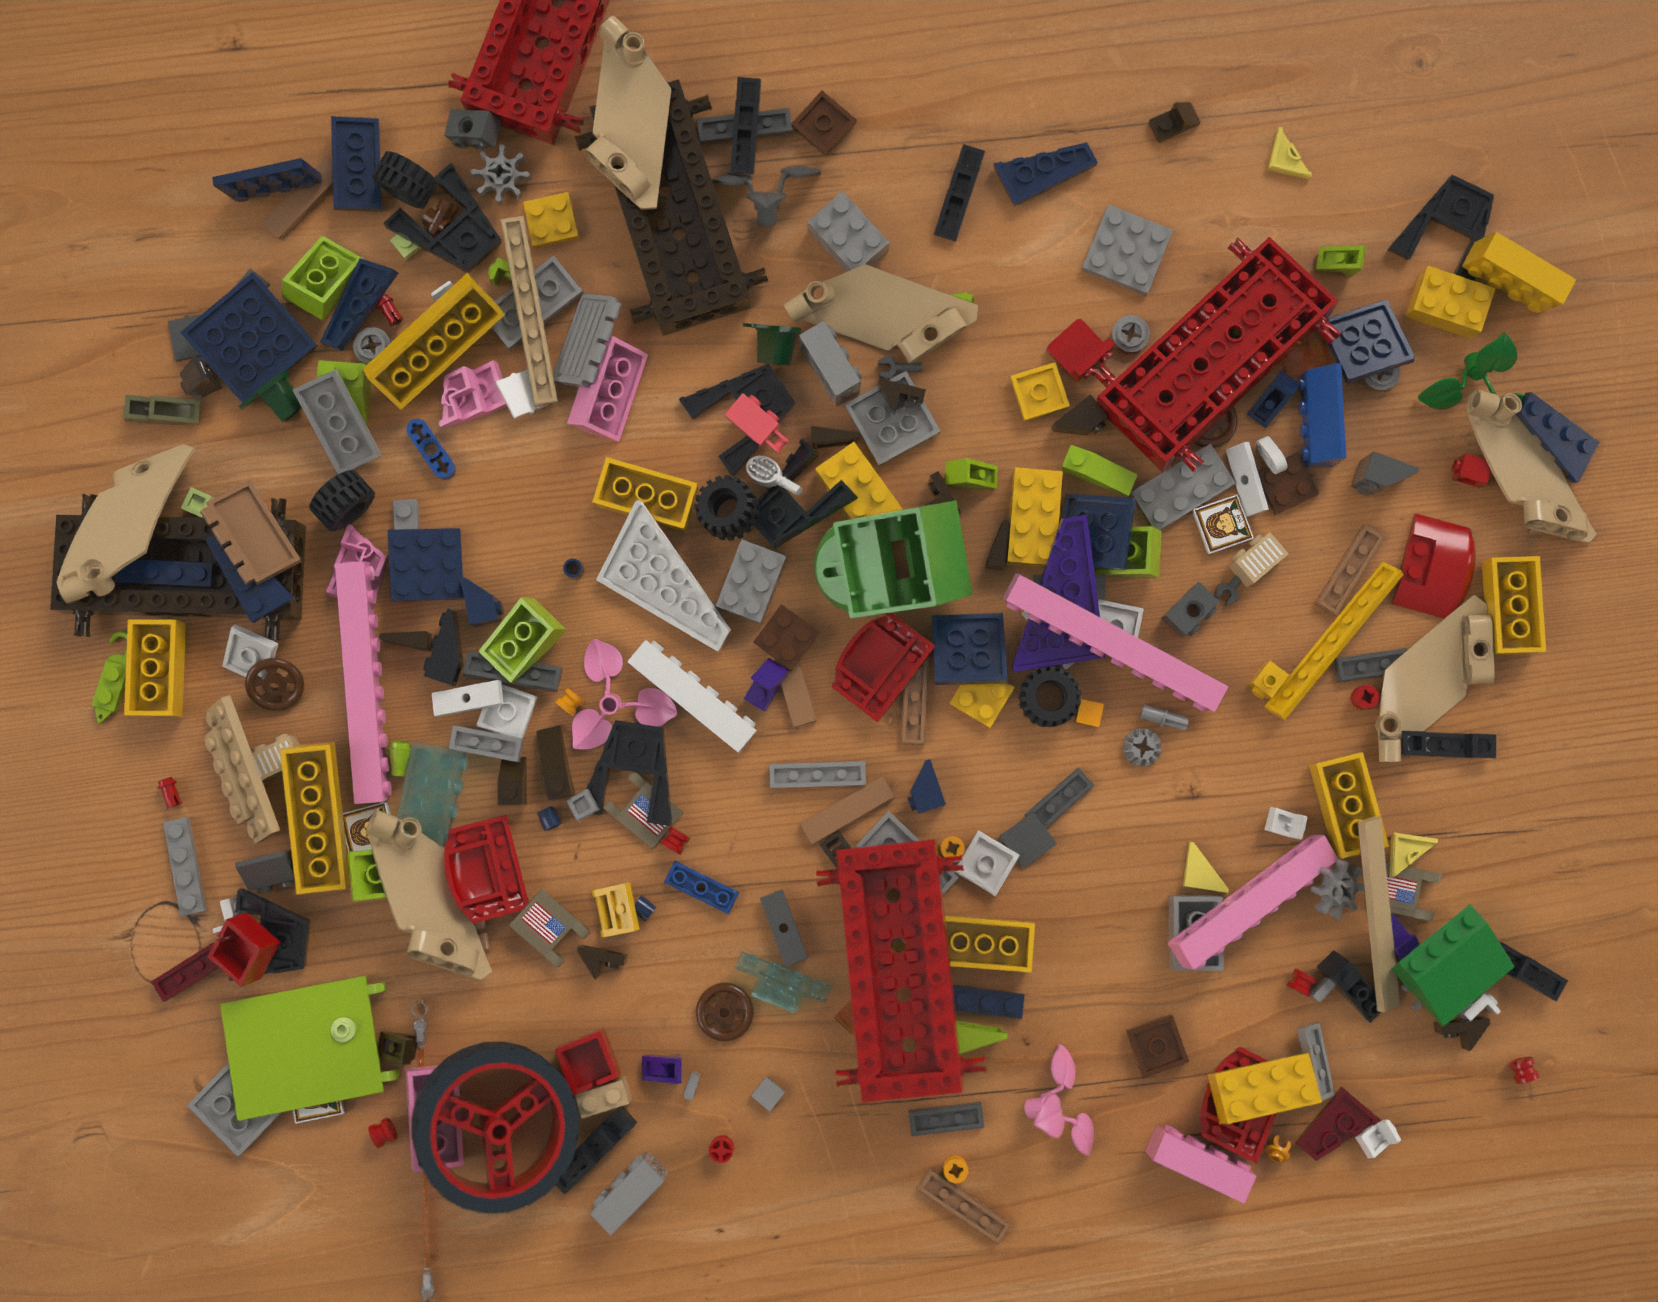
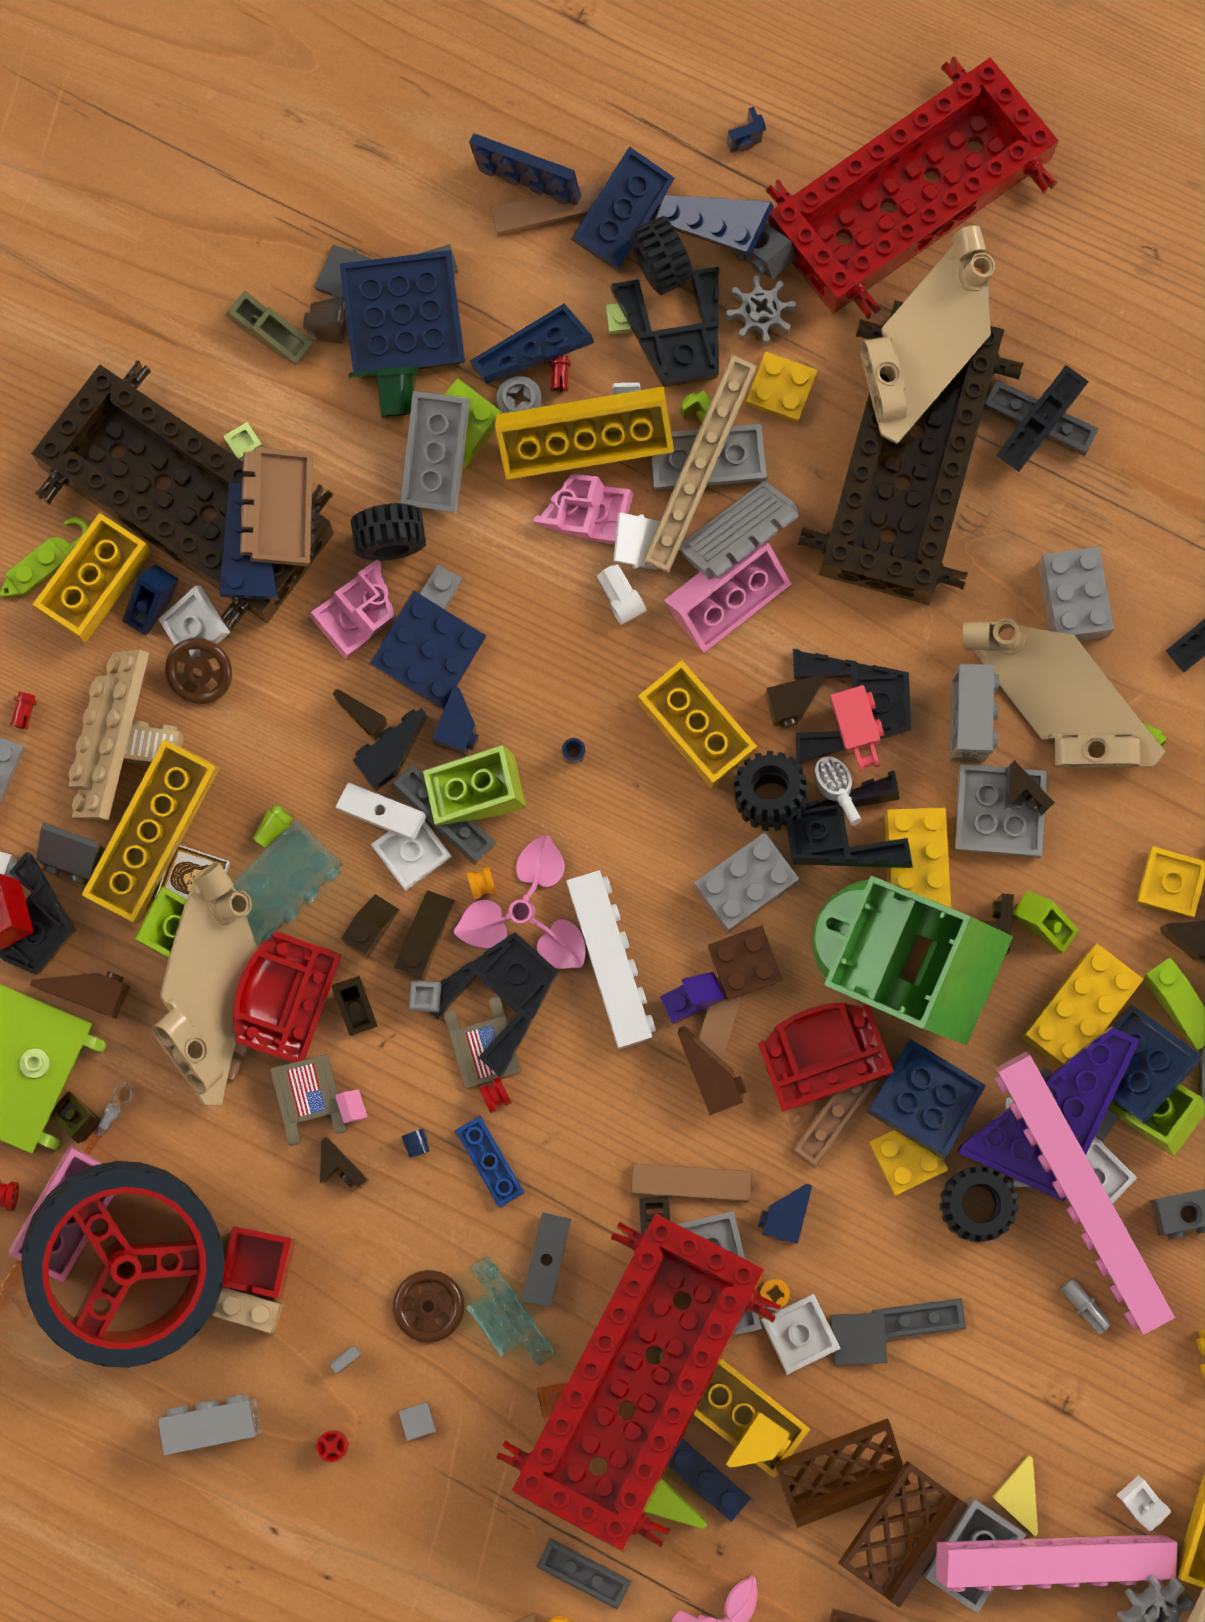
camera: 30 degrees right, 5 degrees down
(120, 524) = (156, 413): tan panel -> none
(168, 573) = (166, 490): dark blue plate -> none
(206, 656) = (149, 598): none -> dark blue slope
(320, 277) = (512, 297): lime slope -> none
(350, 953) = (91, 990): none -> reddish brown slope
(362, 682) = (287, 725): bright pink brick -> none
(409, 55) = (747, 135): none -> dark blue bracket
(426, 432) = (502, 557): blue beam -> none
(430, 129) = (720, 221): none -> wing
(440, 218) = (671, 315): reddish brown plate -> none
(486, 743) = (369, 869): light grey plate -> none
(538, 843) = (354, 1005): none -> dark brown slope
(540, 441) = (623, 599): none -> white piece
(549, 818) = (381, 988): dark blue hose -> none
(582, 913) = (351, 1106): none -> bright pink tile
(596, 1146) = (206, 1356): black slope -> none
(621, 909) = (393, 1129): yellow plate -> none
(655, 577) = (651, 814): white wing -> none
(662, 1068) = (327, 1321): dark purple slope -> none
(701, 435) = (792, 699): none -> dark brown slope
(766, 202) = (1014, 509): dark grey plant -> none
(775, 343) = (929, 656): dark green container -> none
(814, 728) = (714, 1077): none -> reddish brown slope
(817, 774) = (684, 1125): light grey plate -> none
(823, 123) = (1124, 466): reddish brown plate -> none
(829, 437) = (921, 787): dark brown slope -> none
(897, 367) = (1039, 762): dark grey bar -> none
(997, 555) = (1018, 1022): dark brown slope -> none
(1007, 956) = (759, 1442): none -> yellow slope
(1084, 945) = (846, 1489): none -> reddish brown fence
(1089, 713) = (1009, 1249): light orange tile -> none
(1133, 753) = (1028, 1322): light grey gear -> none
(1159, 950) = (920, 1550): none -> reddish brown fence

